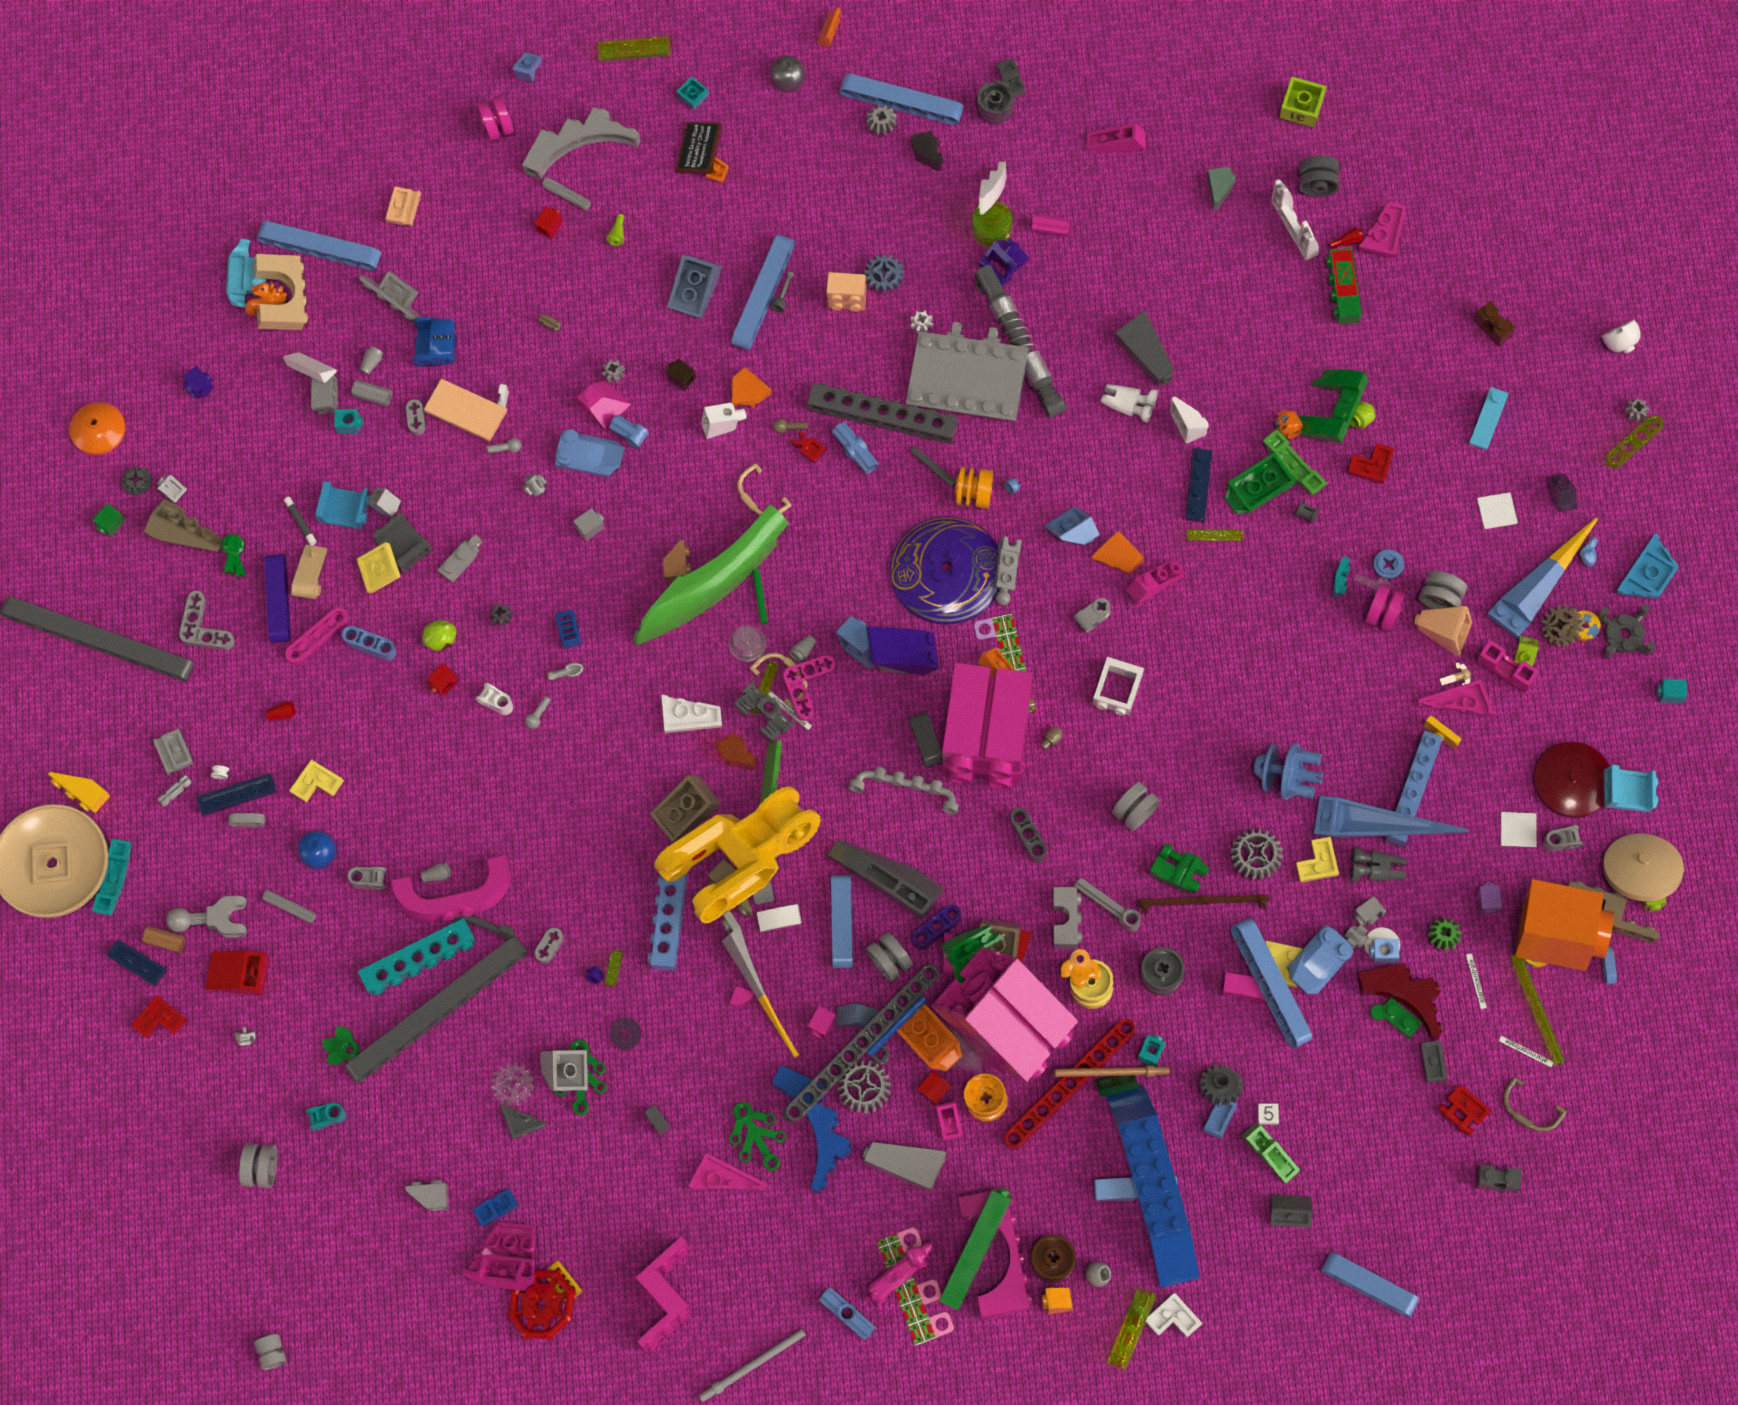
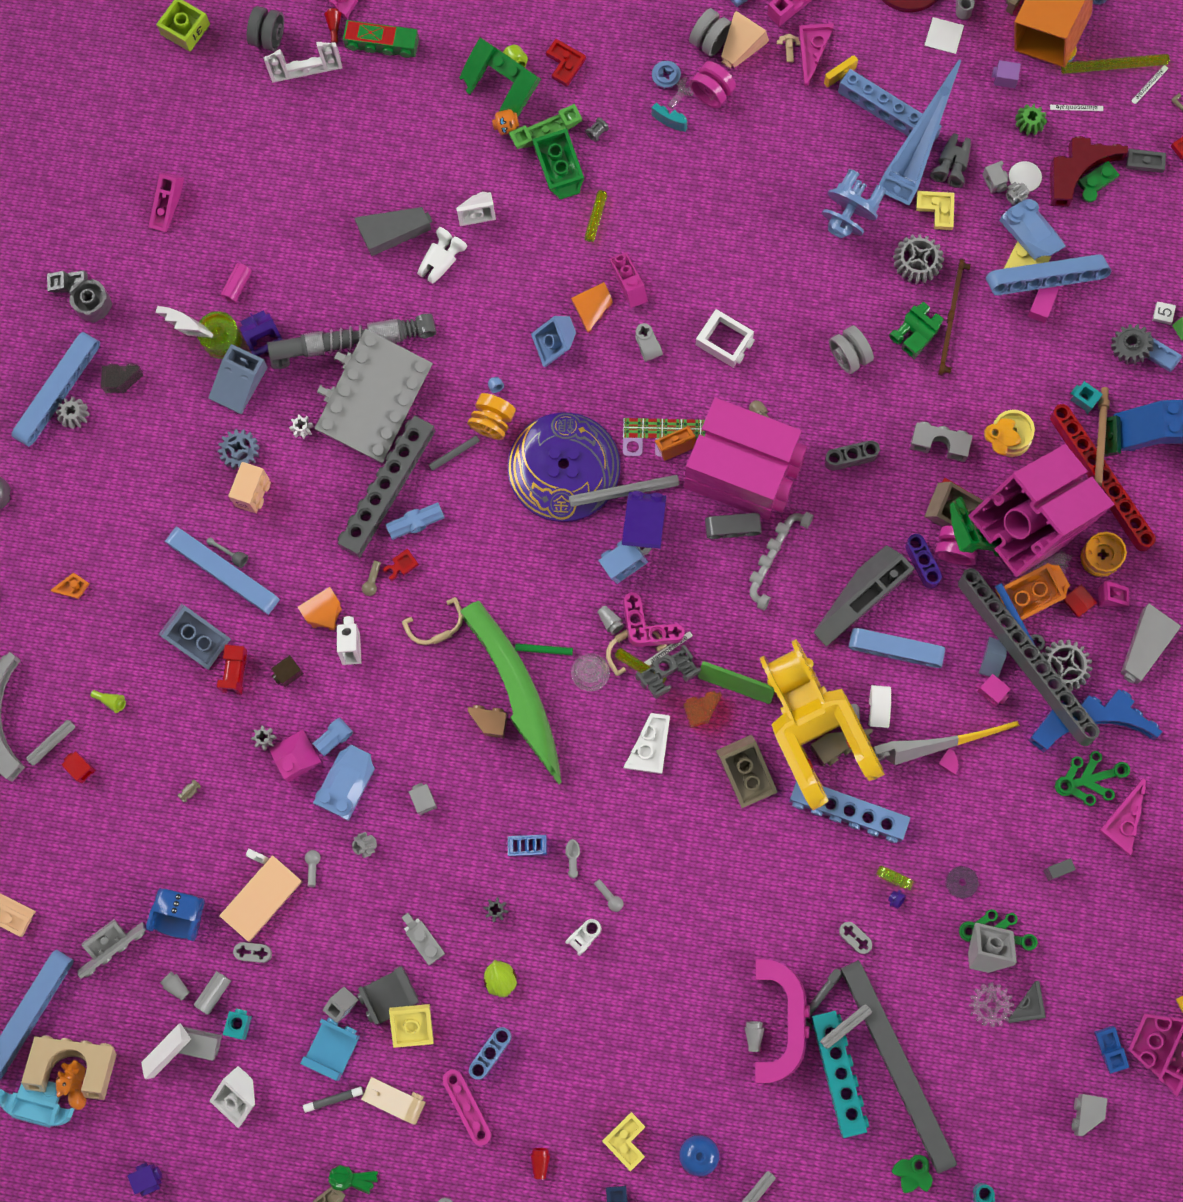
camera: 75 degrees left, 5 degrees up
(277, 598) = (413, 1141): dark purple beam -> none
(285, 435) = (235, 1096): none -> white slope
(371, 877) = (743, 1106): light grey piece -> none
(442, 680) = (550, 986): red brick -> none
(460, 949) = (846, 1026): none -> light grey axle
(670, 328) = (235, 662): none -> red piece
(699, 147) = (44, 597): black tile -> none
(889, 957) = (946, 610): light grey wheel -> none
(931, 623) = (623, 490): none -> light grey axle
(953, 252) = (237, 379): none -> sand blue slope
(1006, 569) = (579, 409): light grey plate -> none
(1110, 905) = (937, 399): light grey axle -> none
(1165, 960) = (1013, 368): dark grey wheel -> none
(1199, 485) = (541, 217): dark blue plate -> none
(1220, 185) = (243, 120): sand green slope -> none
(1392, 946) = (1038, 166): light blue brick -> none

